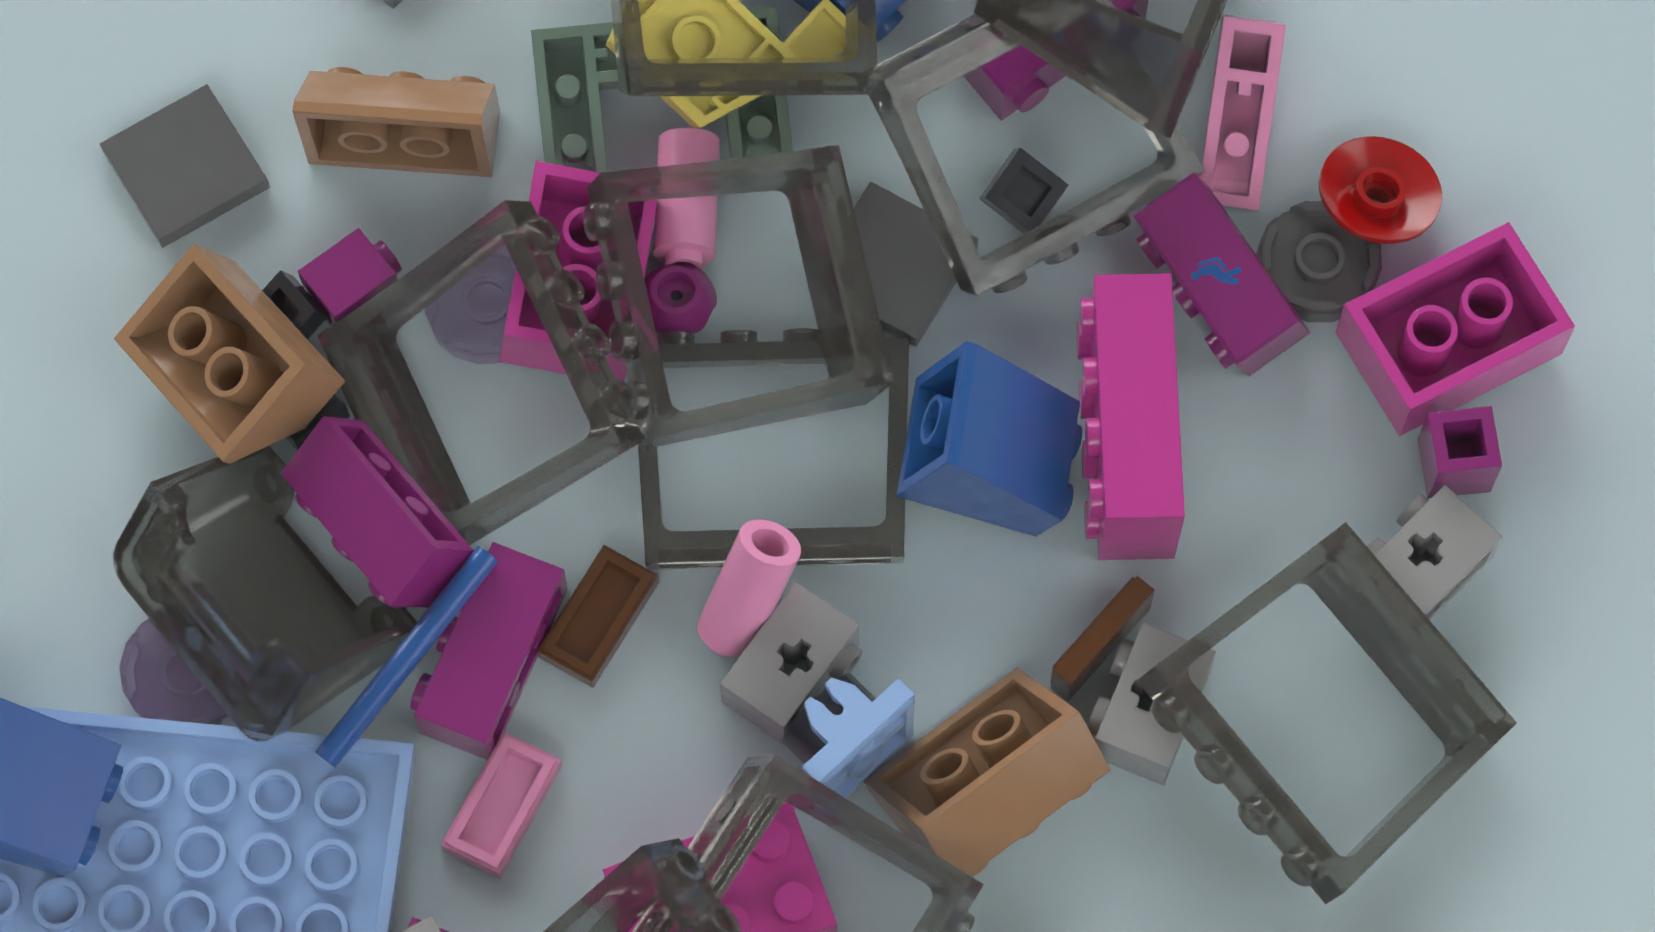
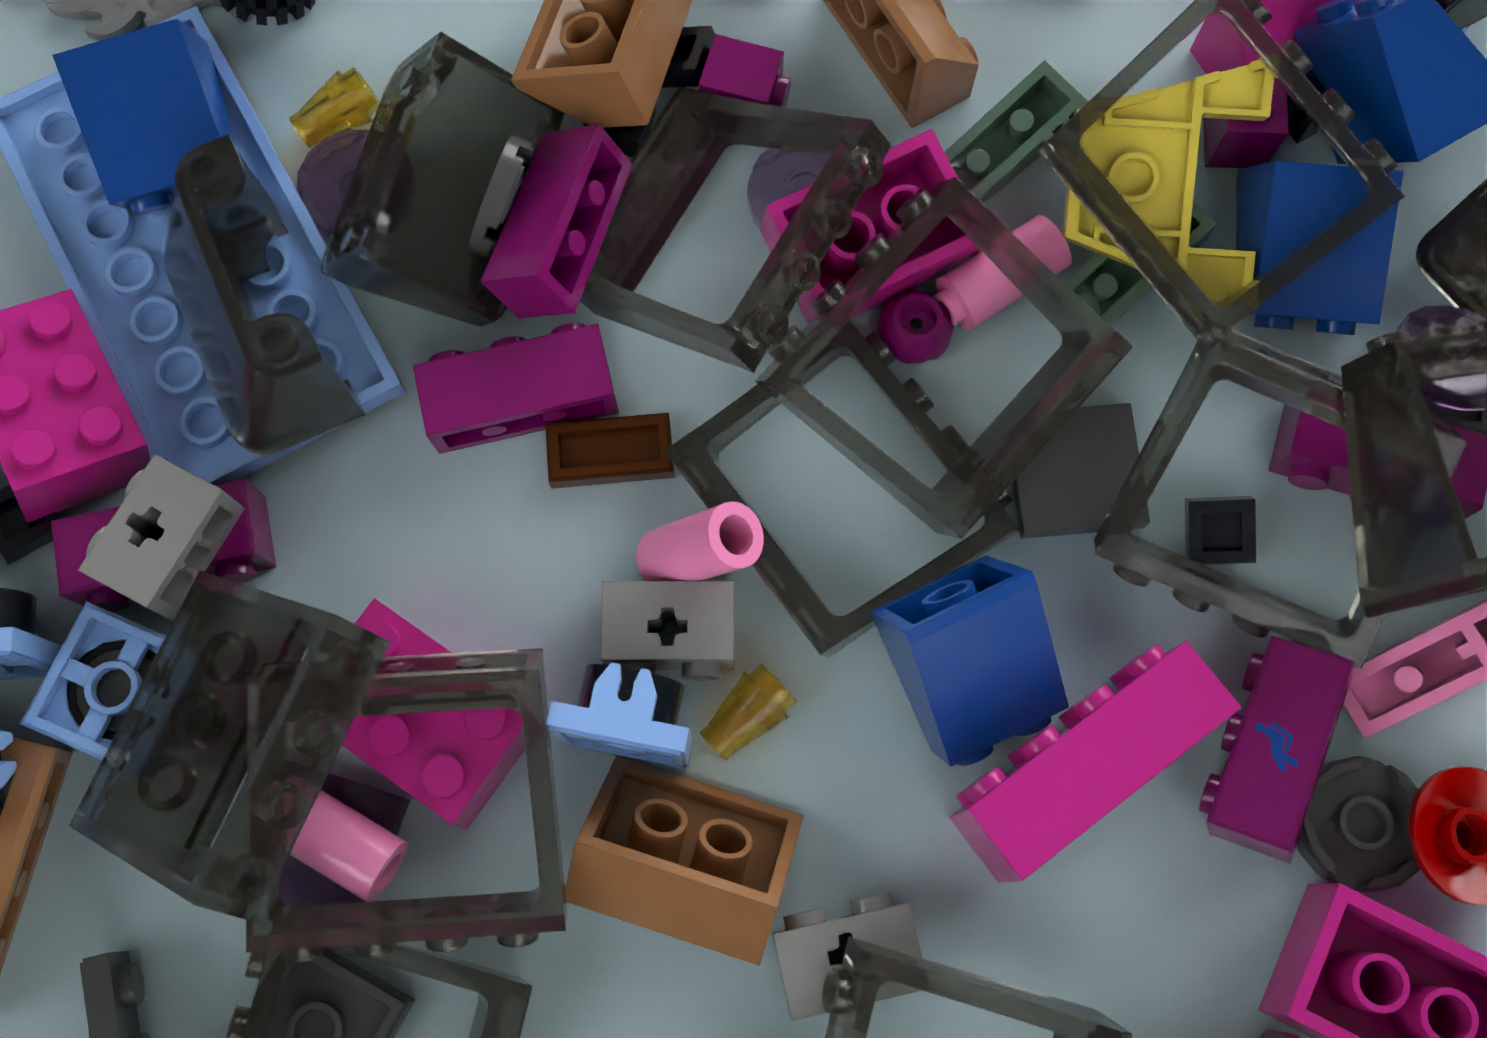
camera: 55 degrees right, 5 degrees up
(98, 637) = (337, 106): none -> clear yellow cone
(270, 833) = (261, 370): none -> clear smoke windscreen
(316, 543) = (500, 195): none -> dark grey tile
(406, 656) = (458, 326): blue bar -> none
(501, 805) = (404, 485): bright pink tile -> none
(905, 645) = (749, 711): none -> clear yellow cone
(1101, 637) = (877, 871): reddish brown tile -> none

